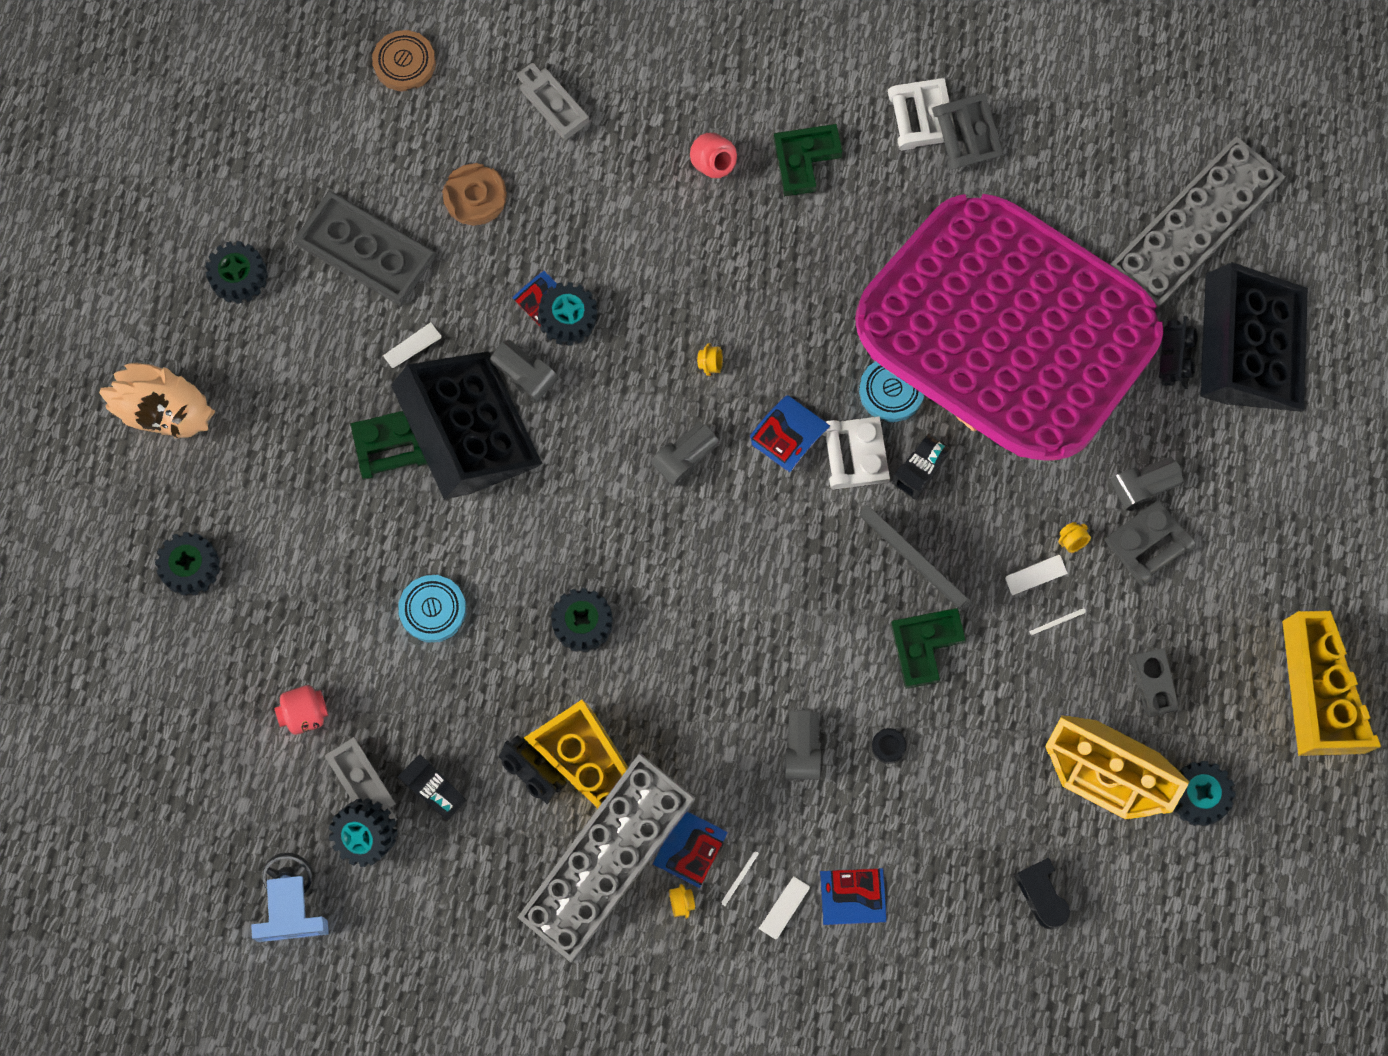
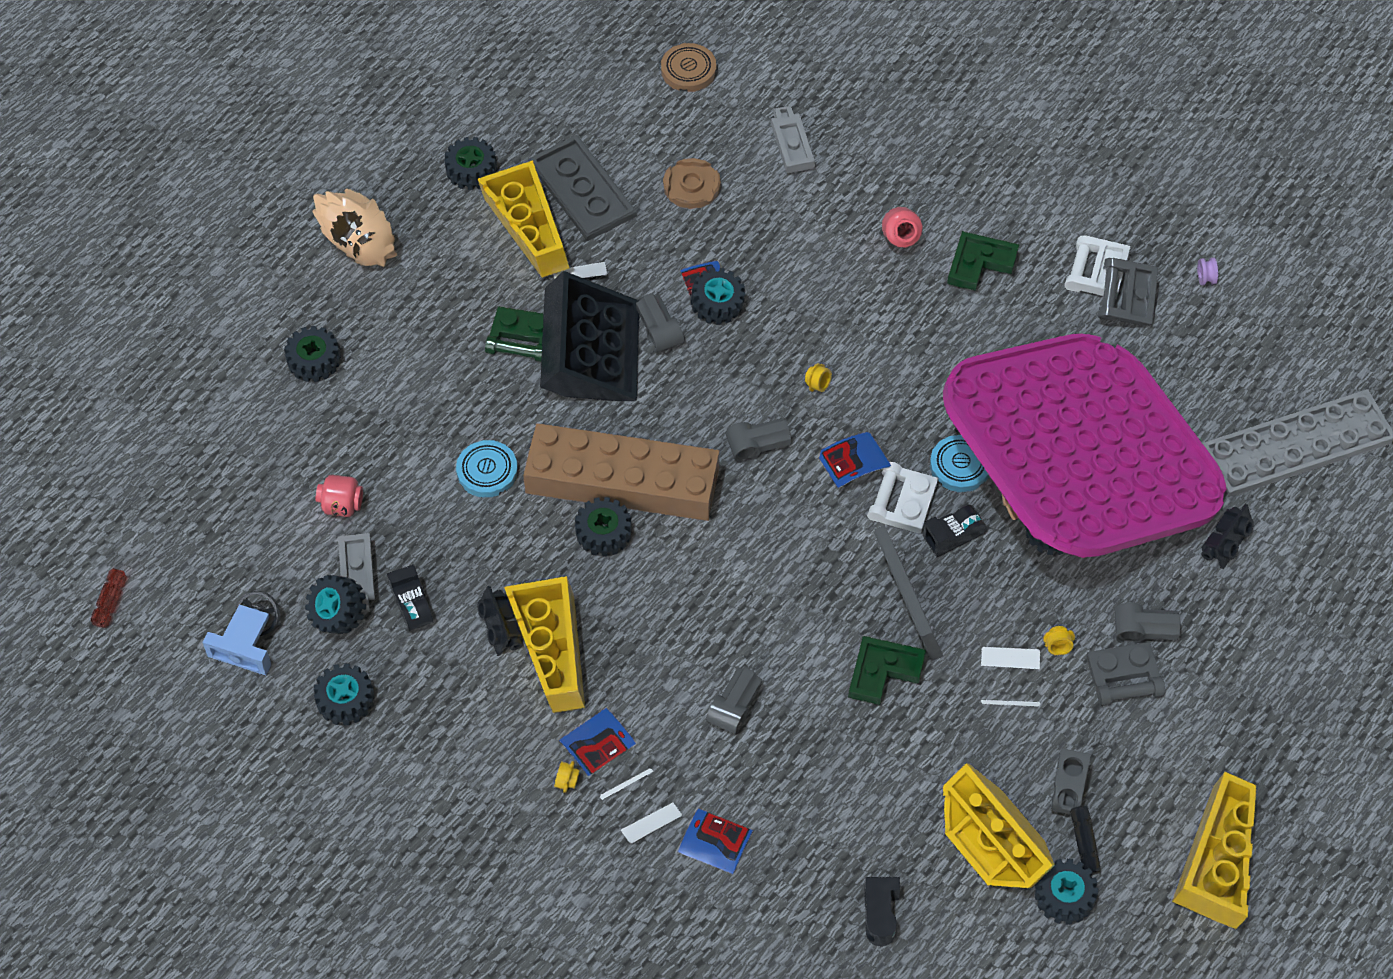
camera: 25 degrees right, 15 degrees down
(123, 929) = (108, 598): none -> clear red axle
(323, 305) = (524, 212): none -> yellow wedge
(409, 909) = (343, 683): none -> black wheel
(571, 553) = (629, 469): none -> medium nougat brick
(606, 857) = (520, 706): light grey plate -> none
(889, 746) = (809, 735): black tile -> none
(1029, 72) = (1207, 271): none -> lavender bush
(1195, 732) = (1085, 838): none -> black axle
(1253, 339) = (1302, 552): black slope -> none

